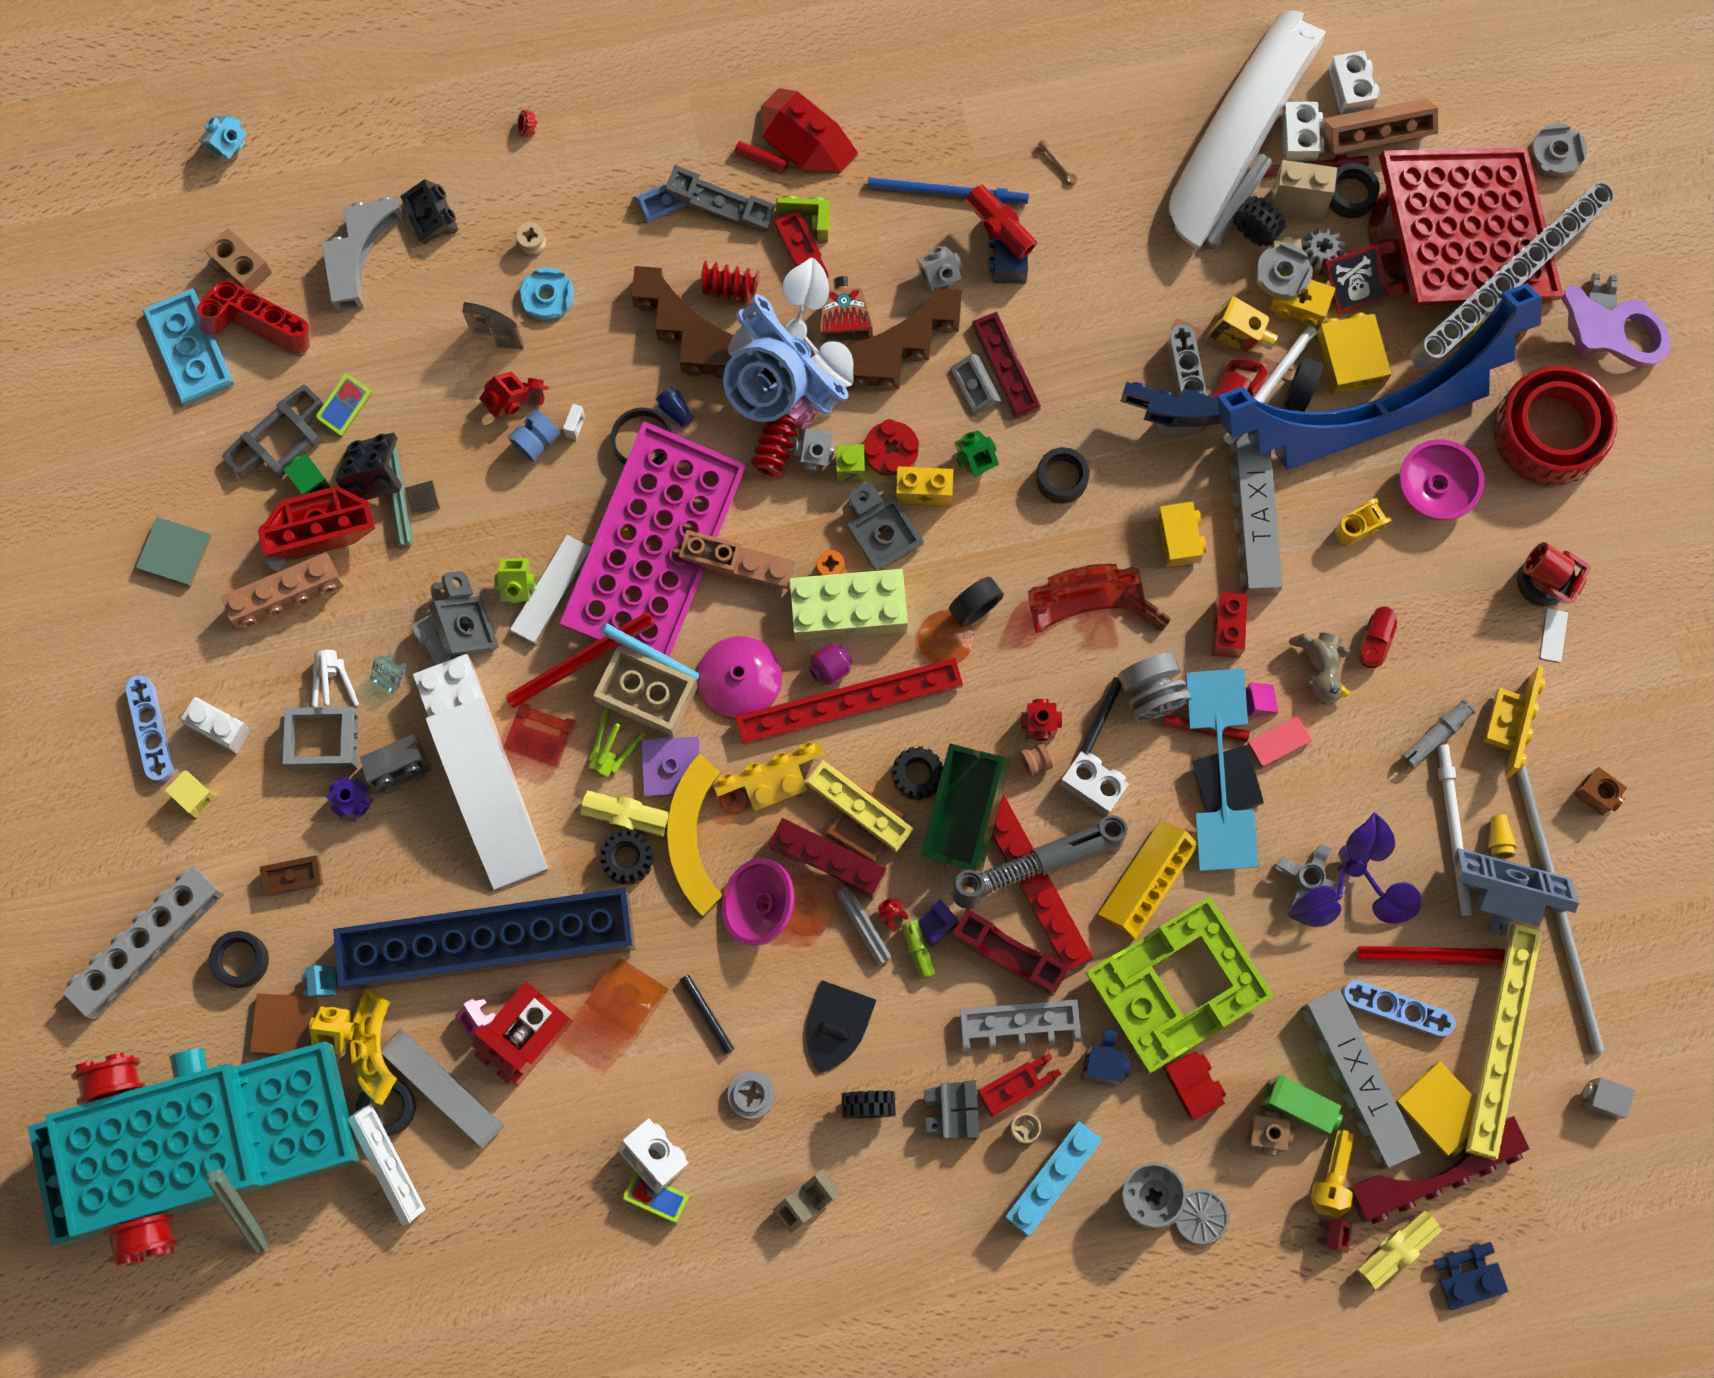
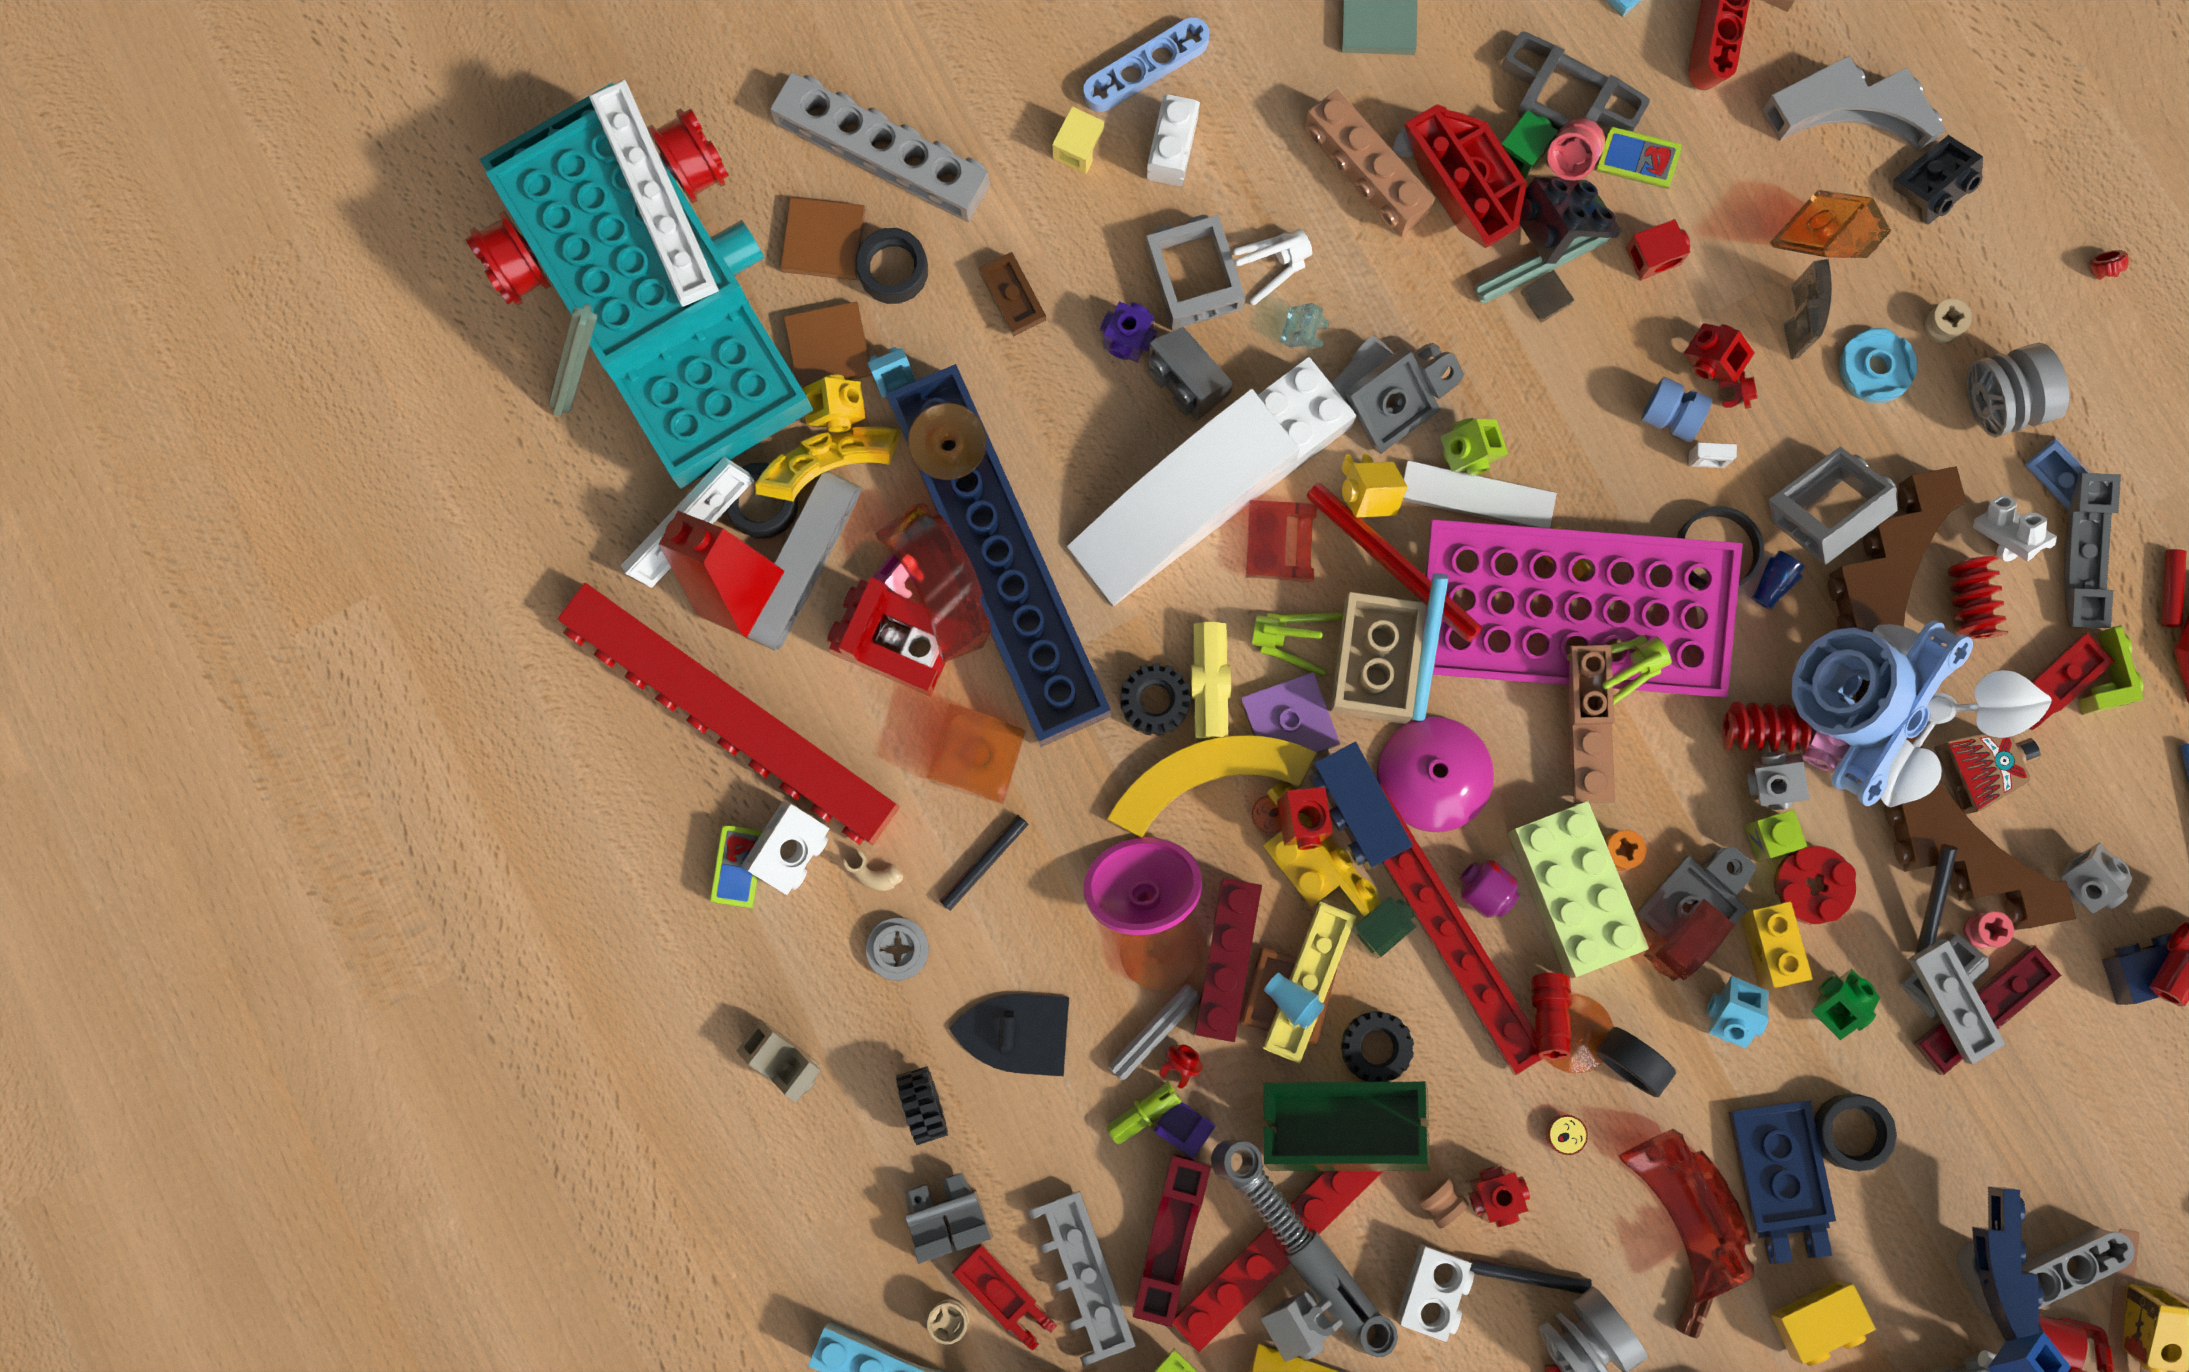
camera: 75 degrees right, 5 degrees up
(131, 1109) = (653, 193): none -> white tile
(198, 1006) = (822, 238): none -> dark orange tile
(324, 444) = (1576, 149): none -> coral wheel
(378, 941) = (944, 423): none -> clear orange dish
(415, 412) = (1658, 249): none -> red brick
(433, 1148) = (719, 572): none -> red slope
(441, 291) = (1834, 227): none -> clear orange slope
(488, 982) = (942, 578): none -> clear red windscreen
(522, 658) = (1372, 487): none -> yellow brick
(537, 1175) = (729, 714): none -> red brick
(594, 210) = (2017, 389): none -> light grey wheel
(609, 341) = (1825, 543): none -> light grey window
(691, 244) = (2013, 532): none -> white hips
(697, 1095) = (875, 880): none -> tan arm
(704, 509) = (1647, 660): none -> lime plant
(738, 763) = (1312, 803): none -> red brick
(747, 734) = (1360, 807): none -> dark blue brick
(835, 742) = (1385, 926): none -> clear green brick
(869, 818) = (1295, 1001): none -> medium azure cone
(905, 540) = (1690, 941): none -> clear red brick
(924, 373) = (1937, 896): none -> black bar
(934, 648) = (1552, 1019): none -> red axle
(950, 340) = (1980, 937): none -> coral bush
(962, 524) = (1738, 1012): none -> medium azure brick
(994, 382) = (1956, 1001): none -> light grey plate
(1012, 663) = (1566, 1134): none -> light yellow tile
(1080, 529) = (1784, 1177): none -> dark blue tile
(1092, 880) = (1299, 1326): none -> light grey brick

